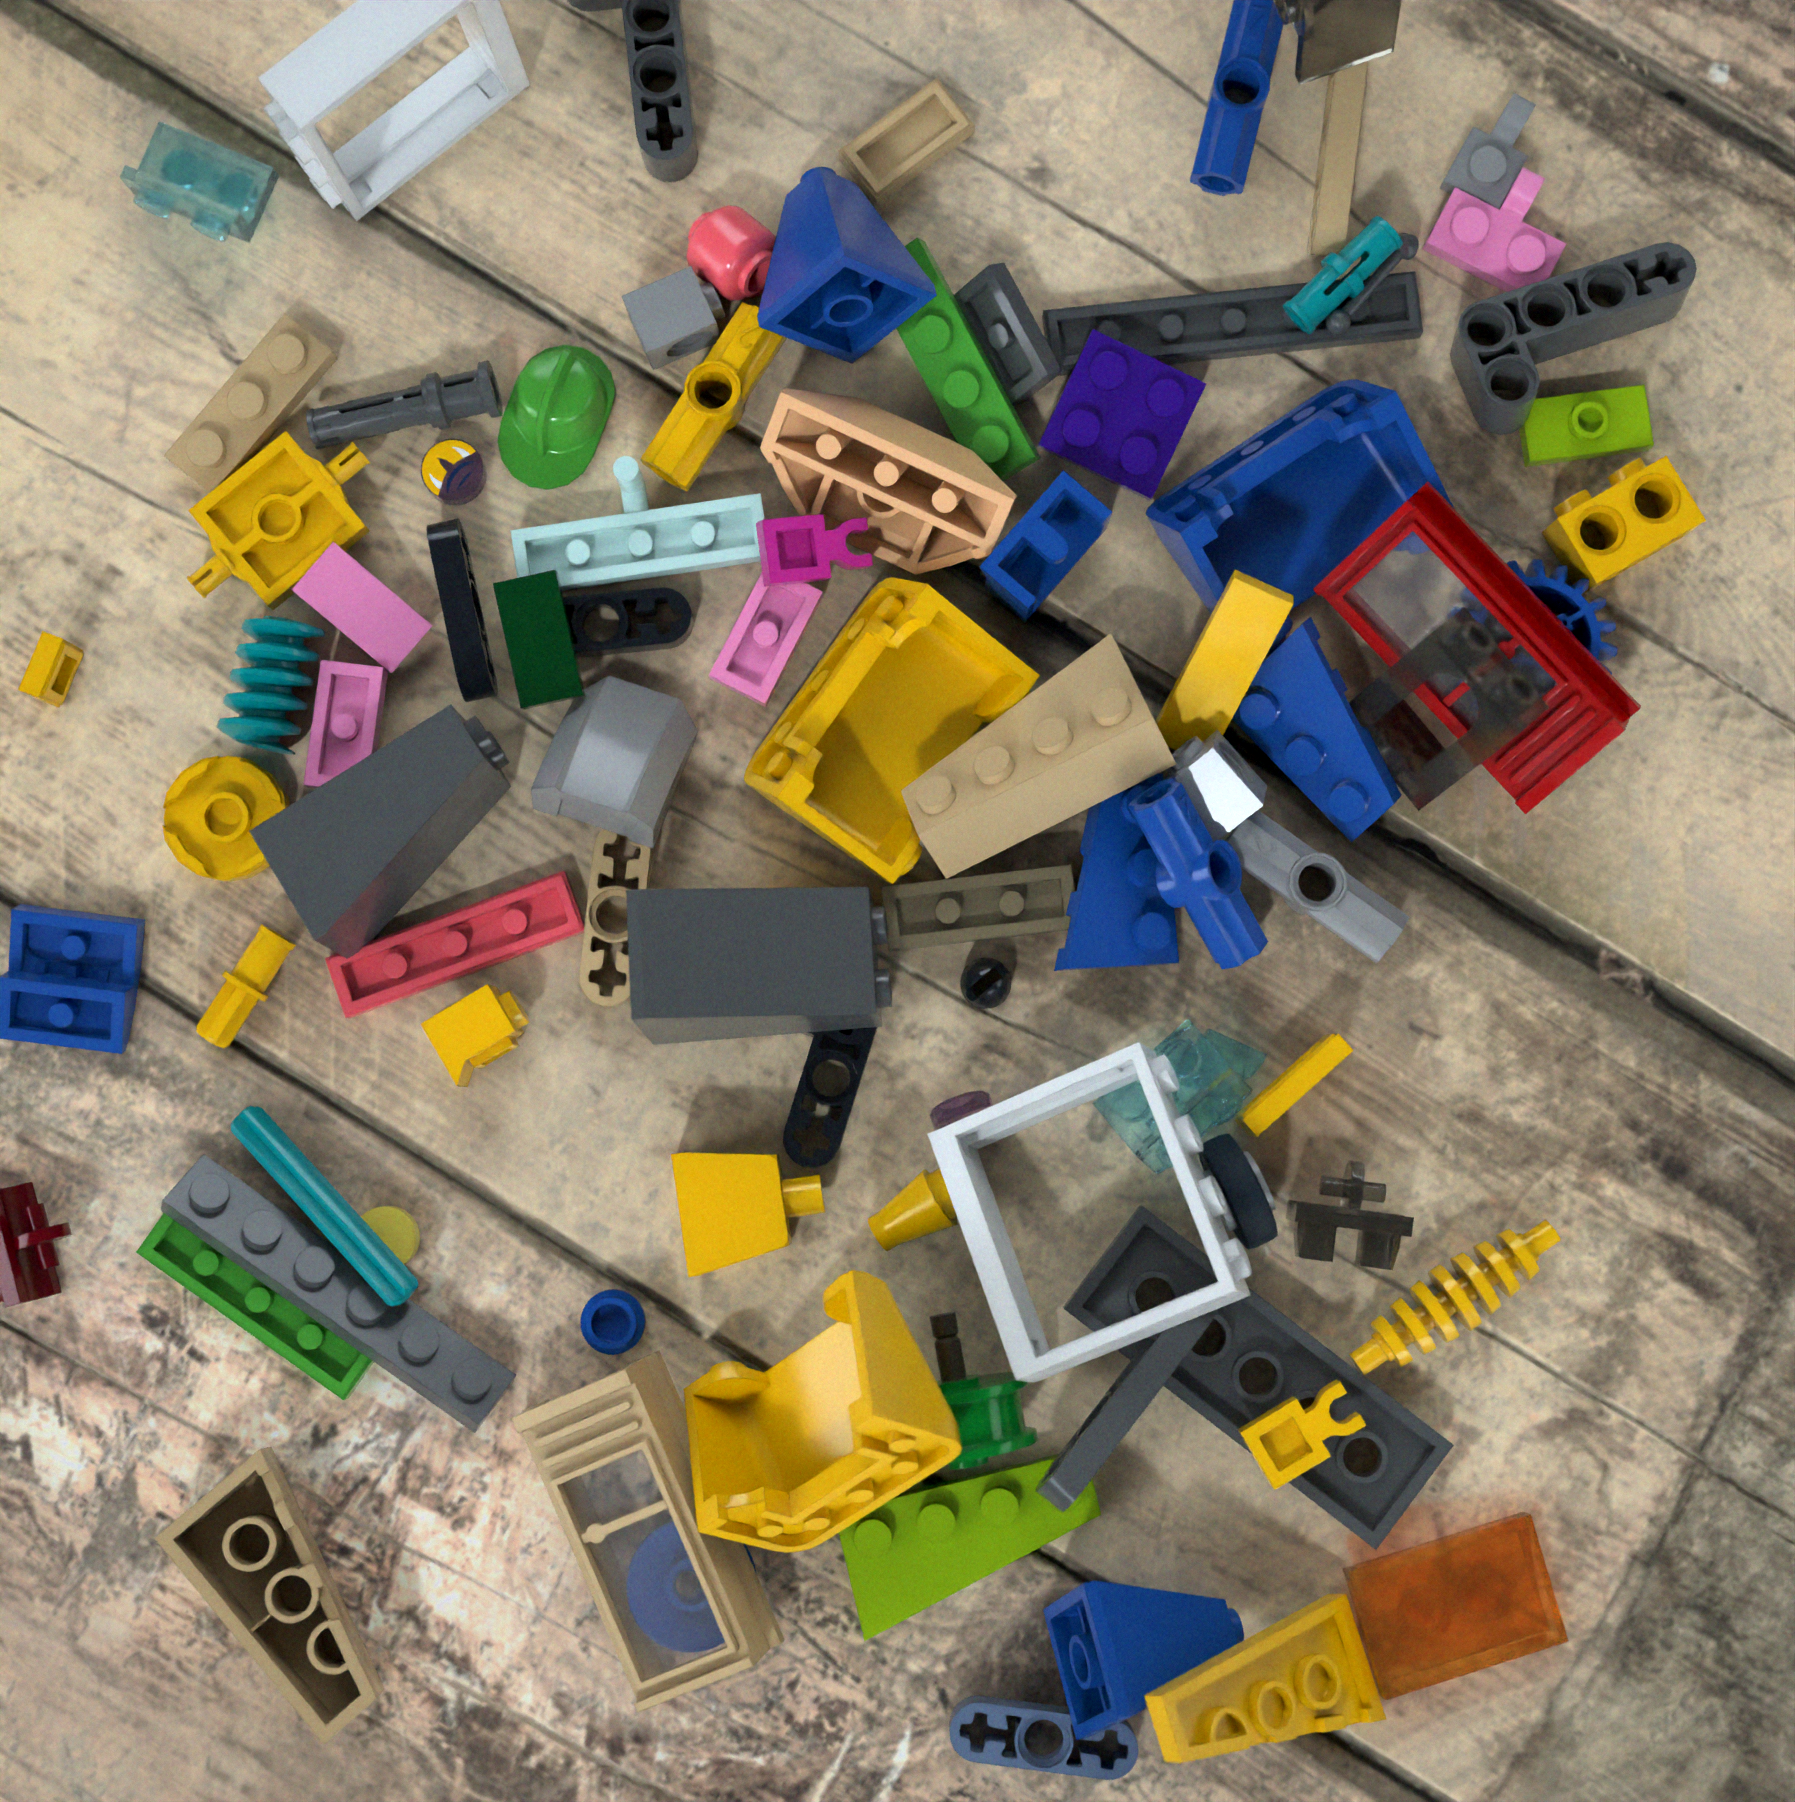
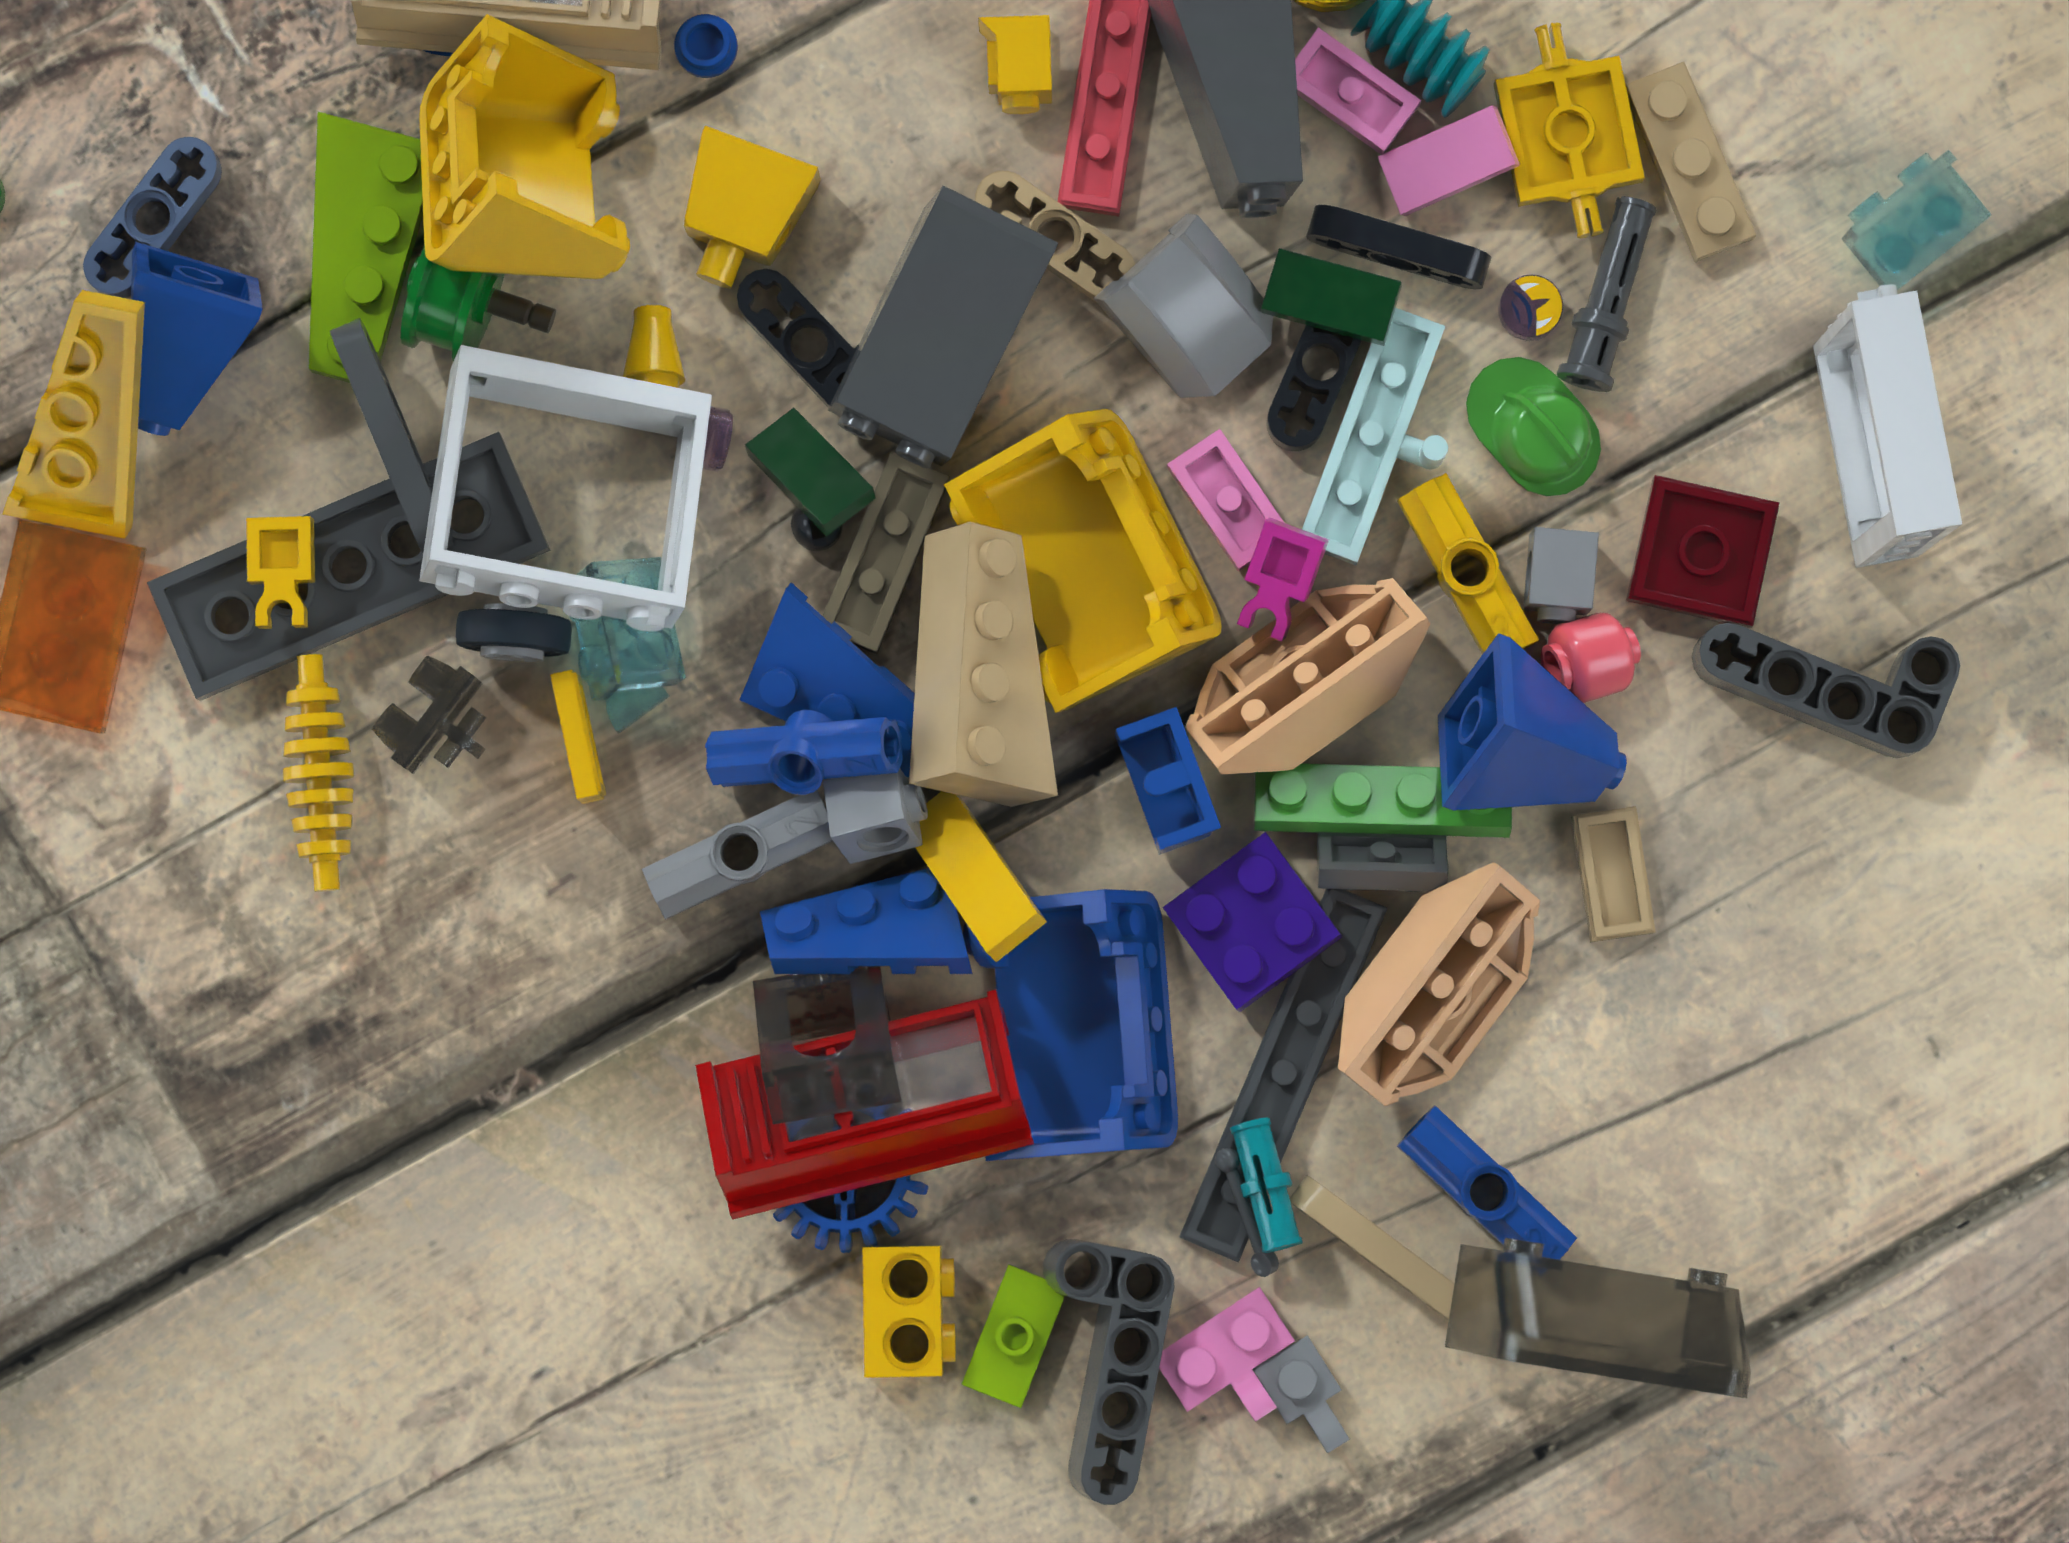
camera: 120 degrees right, 0 degrees up
(587, 211) = (1702, 551): none -> dark red plate
(945, 1010) = (810, 471): none -> dark green tile
(1089, 230) = (1438, 984): none -> light nougat wedge

